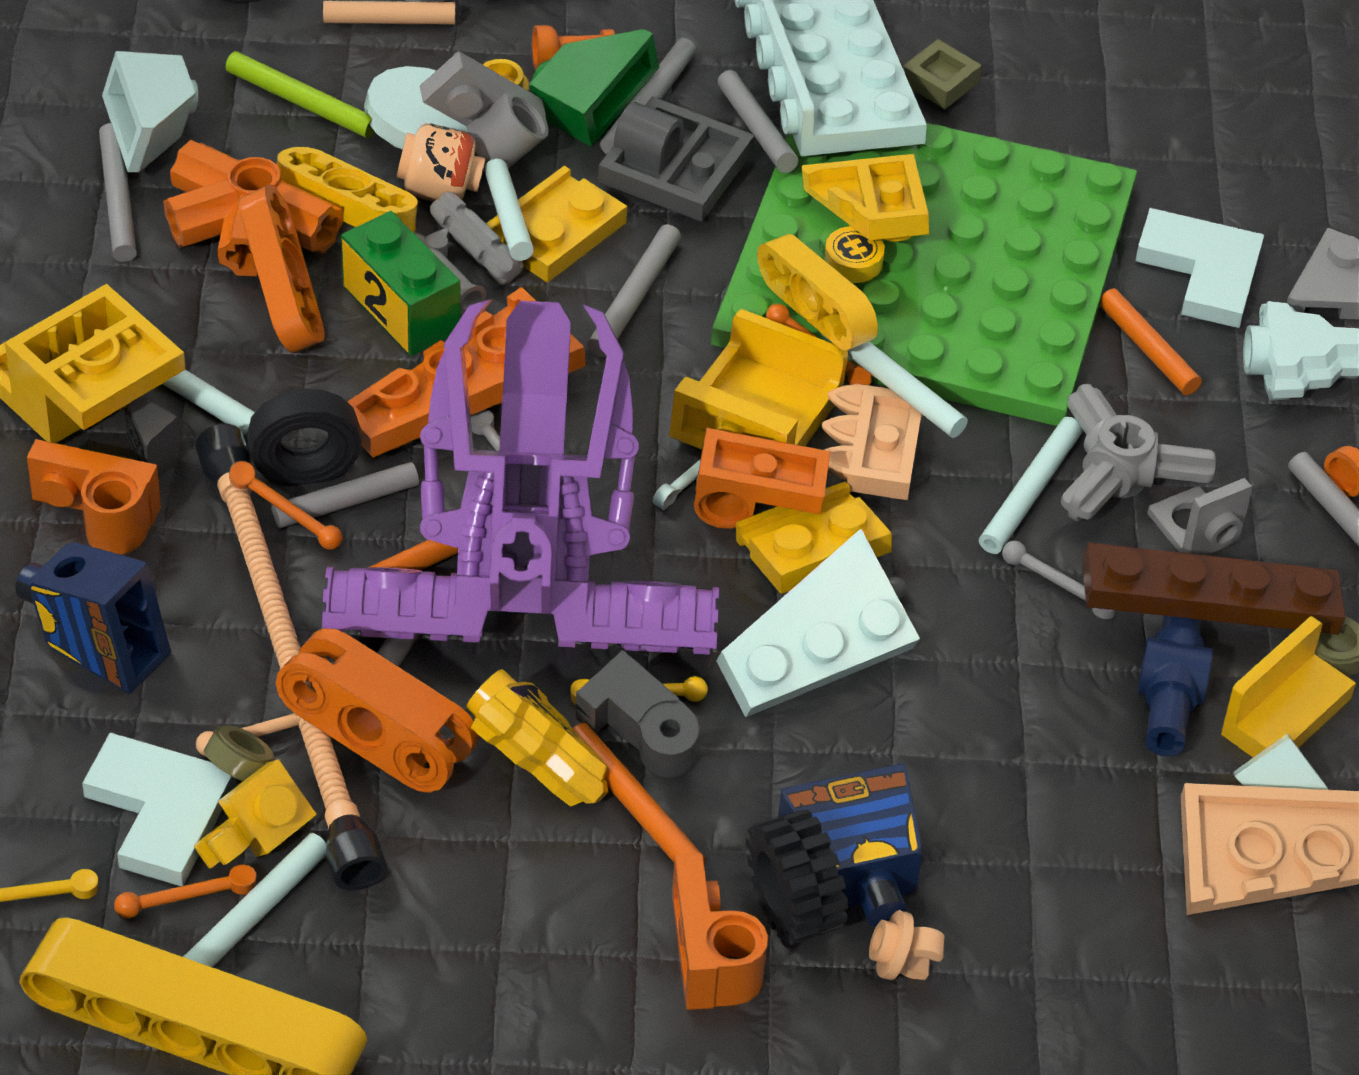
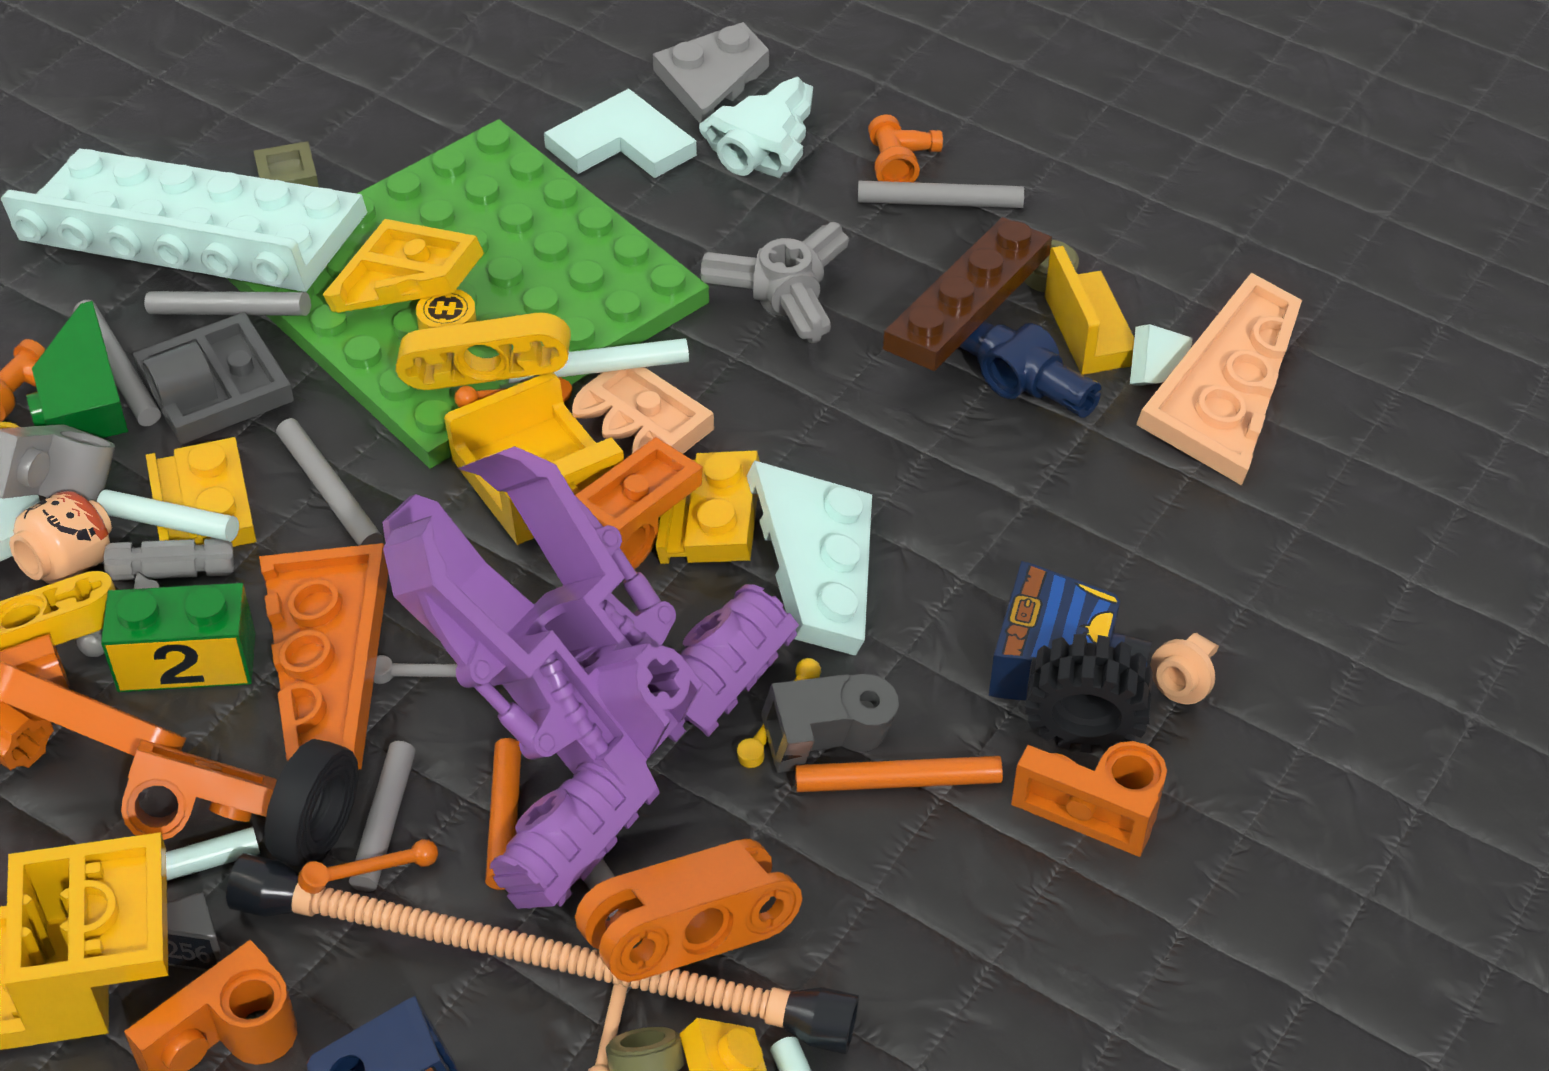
camera: 55 degrees left, 0 degrees up
(270, 356) = (232, 790): none -> orange plate
(537, 738) = (798, 805): yellow rock -> none
(1015, 554) = (908, 372): light grey hinge -> none
(1030, 485) = (759, 349): light aqua piece -> none
(1150, 342) = (673, 206): orange piece -> none
(1214, 517) = (888, 271): light grey bracket -> none

